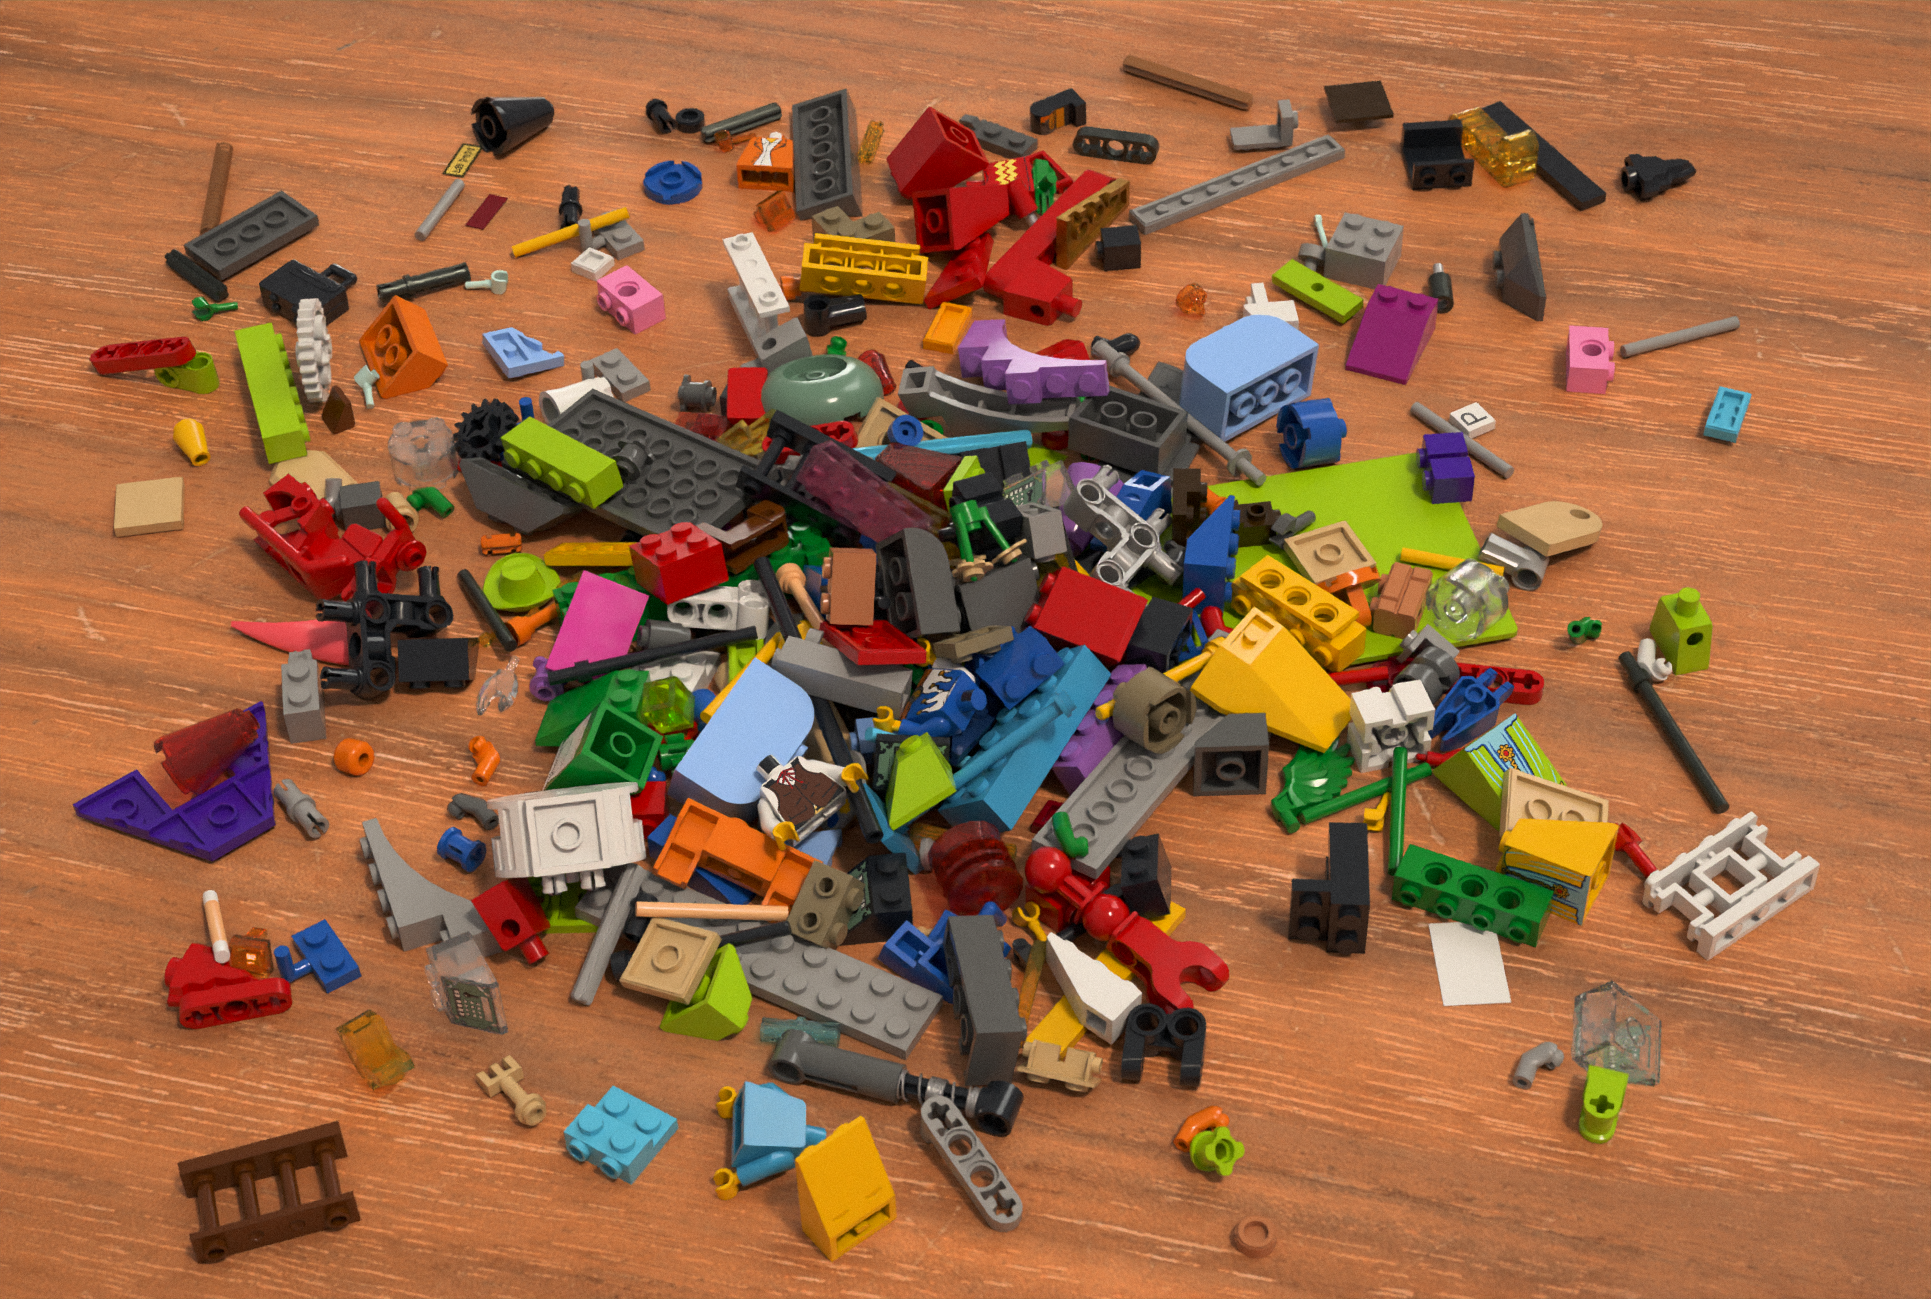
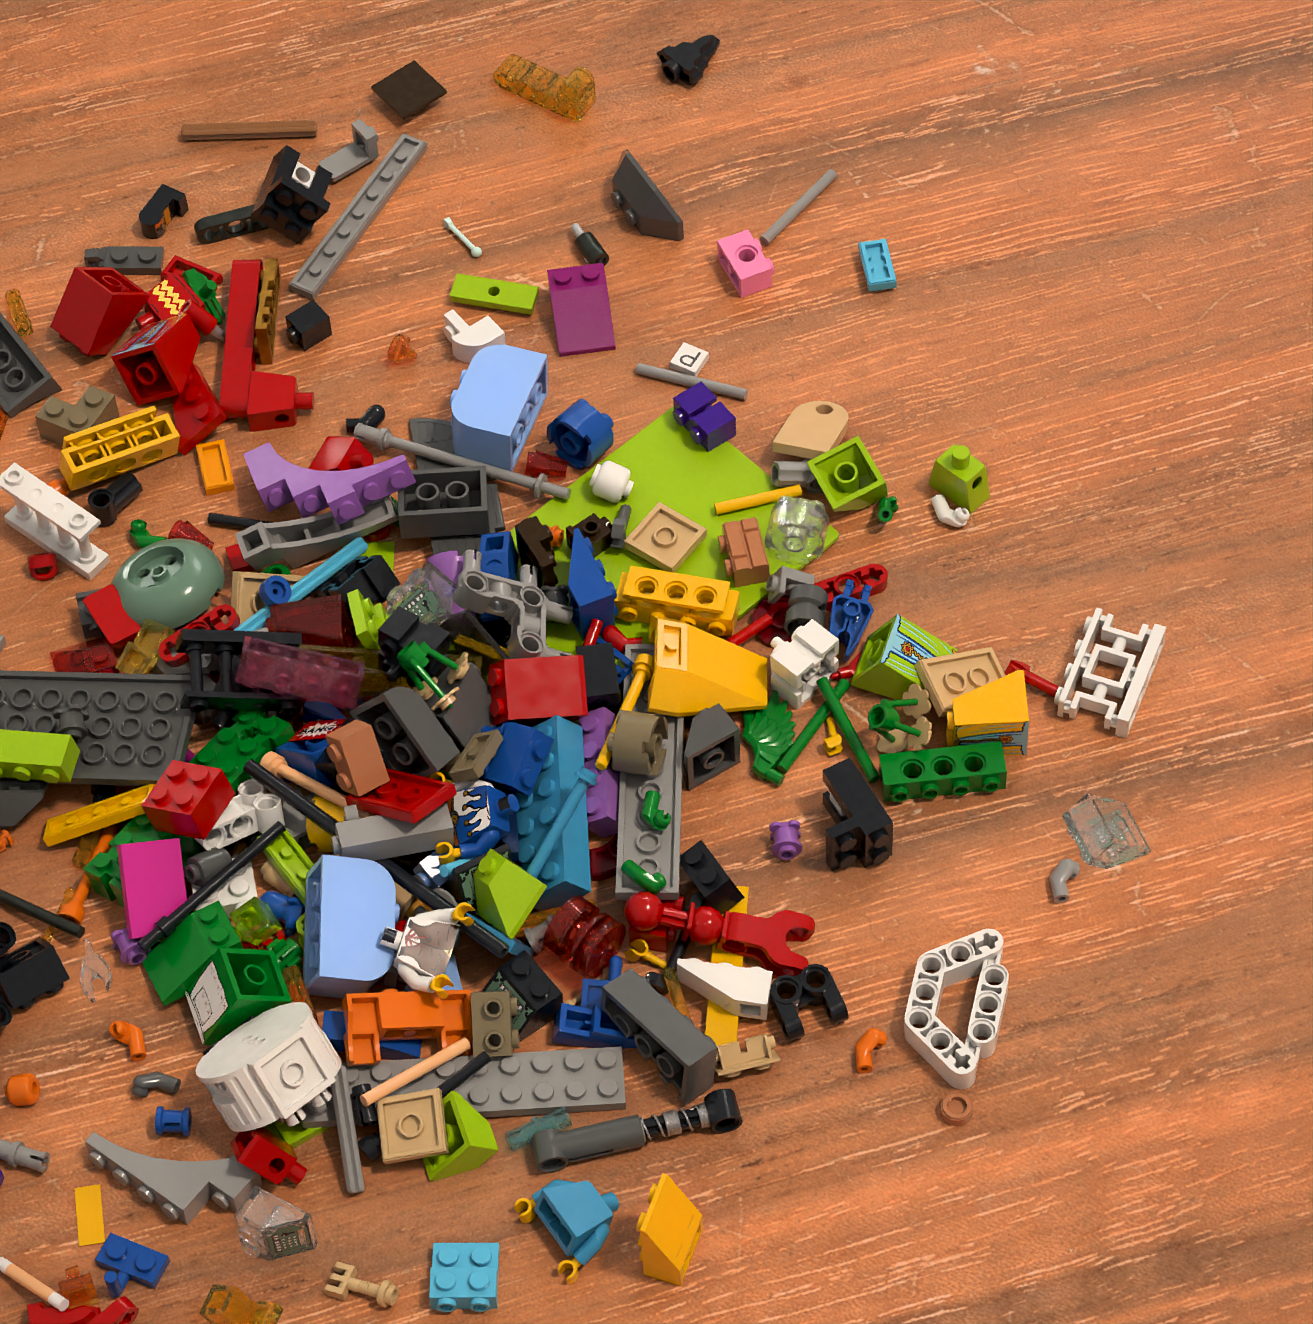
camera: 30 degrees left, 10 degrees up
(324, 896) = (89, 1215): none -> yellow sticker
(520, 583) = (39, 873): lime hat -> none
(657, 788) = (297, 986): none -> clear yellow axle
(696, 394) = (56, 630): dark grey brick -> none
(731, 335) = (43, 560): none -> red tile
(753, 536) = (223, 748): reddish brown piece -> none
(763, 655) = (299, 869): yellow bar -> none
(780, 346) = (103, 559): light grey torso -> none
(963, 1167) = (729, 1167): light grey beam -> none
(1043, 531) = (466, 634): light grey brick -> none
(1123, 781) = (650, 813): none -> green arm
(1180, 138) = (292, 196): none -> black brick
(1215, 1151) = (894, 1062): lime brick -> none
(1256, 882) = (785, 839): none -> medium lavender brick
(1260, 448) = (541, 462): none -> clear red cone
(1310, 484) = (611, 481): none -> white head
(1312, 255) = (470, 262): light grey tile -> none
(1325, 1083) = (983, 956): none -> white piece
(1350, 587) = (705, 563): orange tile -> none
(1363, 251) = (509, 239): light grey brick -> none
(1433, 805) = (893, 734): none -> plant
(1435, 155) = (503, 116): black panel -> none
(1468, 965) = (968, 826): white sticker -> none
(1551, 163) = (607, 85): black tile -> none
(1559, 579) = (848, 476): none -> lime slope
(1602, 1102) = (1124, 885): lime piece -> none
(1642, 683) = (953, 535): pearl dark grey bar -> none

